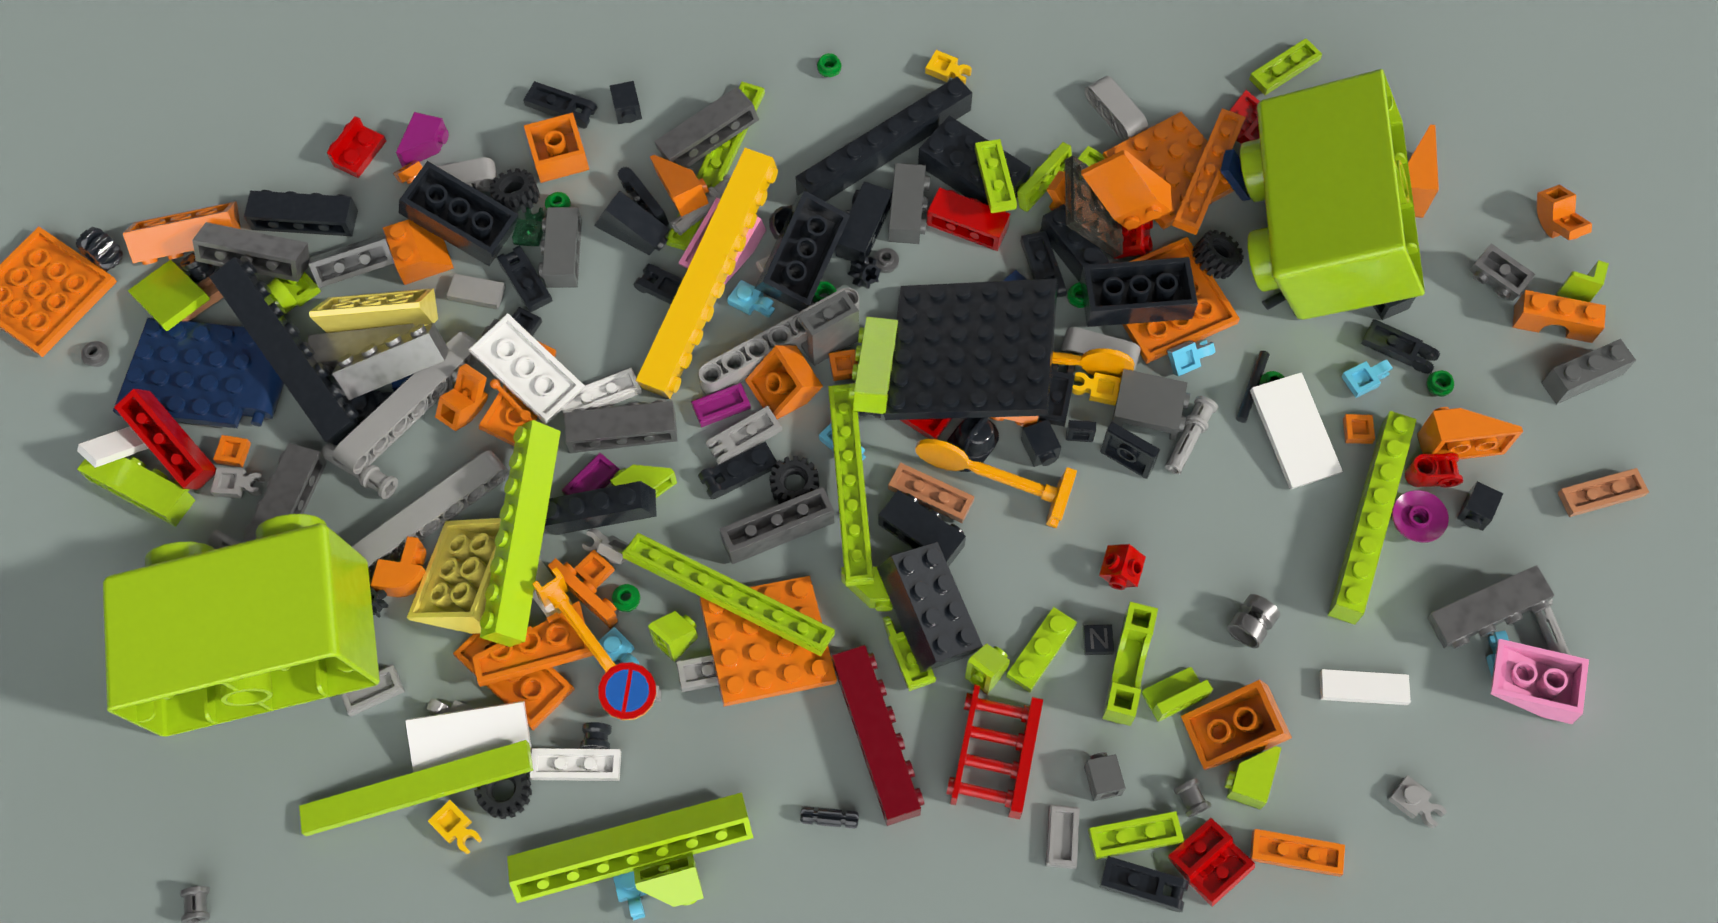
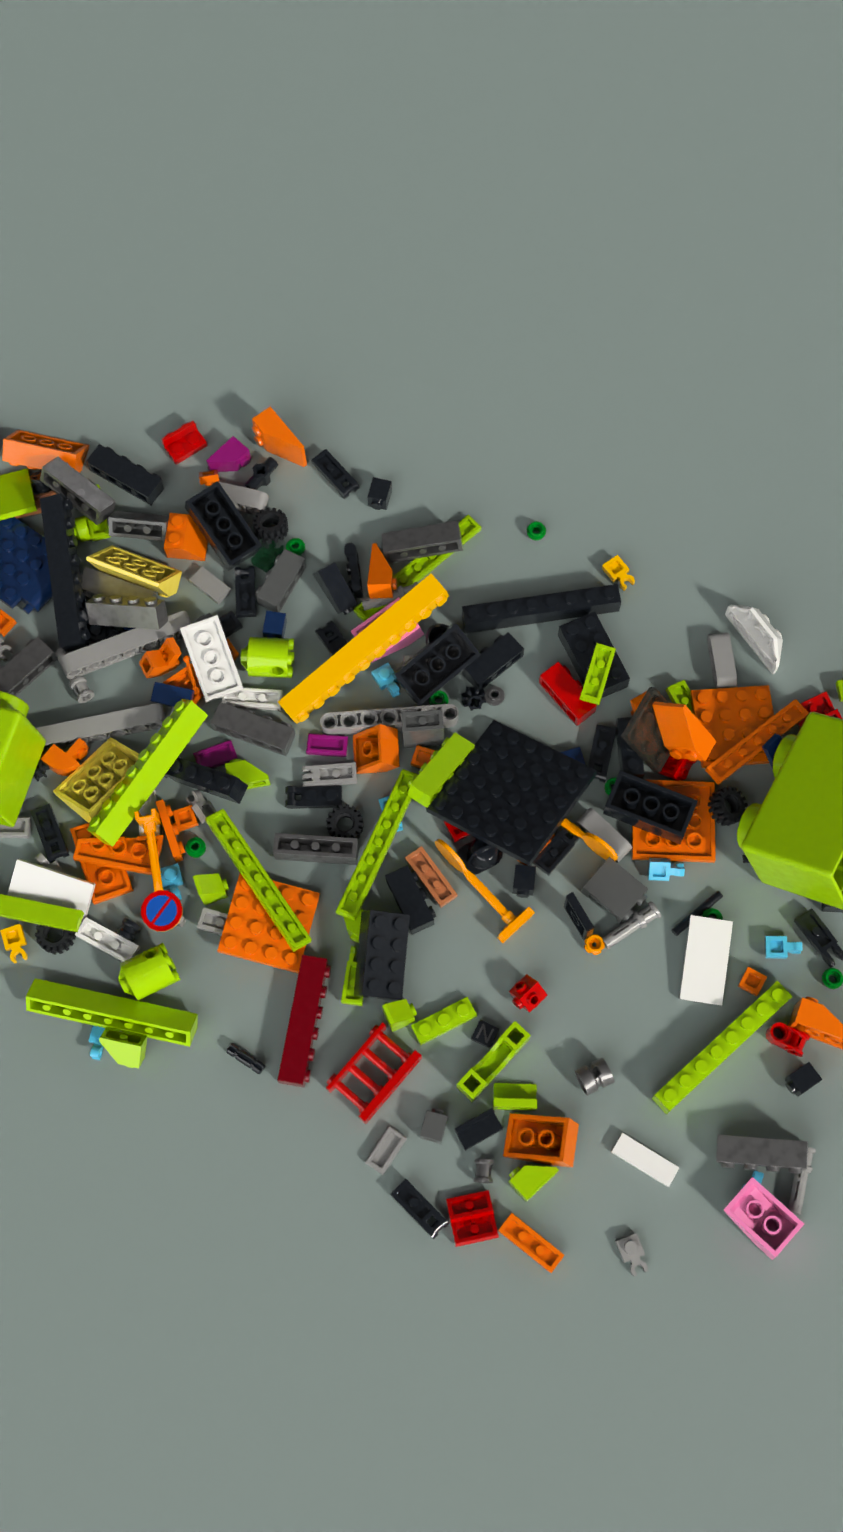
camera: 30 degrees right, 5 degrees up
(428, 670) = (49, 832): none -> black plate
(472, 91) = (277, 437): none -> orange slope
(472, 140) = (261, 474): none -> black axle
(496, 434) = (170, 694): none -> dark blue tile
(556, 147) = (314, 506): orange brick -> none
(583, 300) = (274, 624): none -> dark blue brick
(596, 335) = (268, 657): none -> lime cylinder
(651, 773) = (148, 972): none -> lime cylinder
(908, 203) = (532, 662): dark grey brick -> none
(1042, 177) = (624, 694): lime plate -> none
(1080, 431) = (556, 885): black tile -> none
(1102, 387) = (588, 862): yellow plate -> none
(1135, 835) = (432, 1175): lime plate -> none
(1137, 62) = (757, 633): none -> white wedge
(1157, 753) = (478, 1129): none -> black panel
(1165, 470) = (595, 950): none -> light orange plate
(1427, 508) = (763, 1057): magenta dish -> none

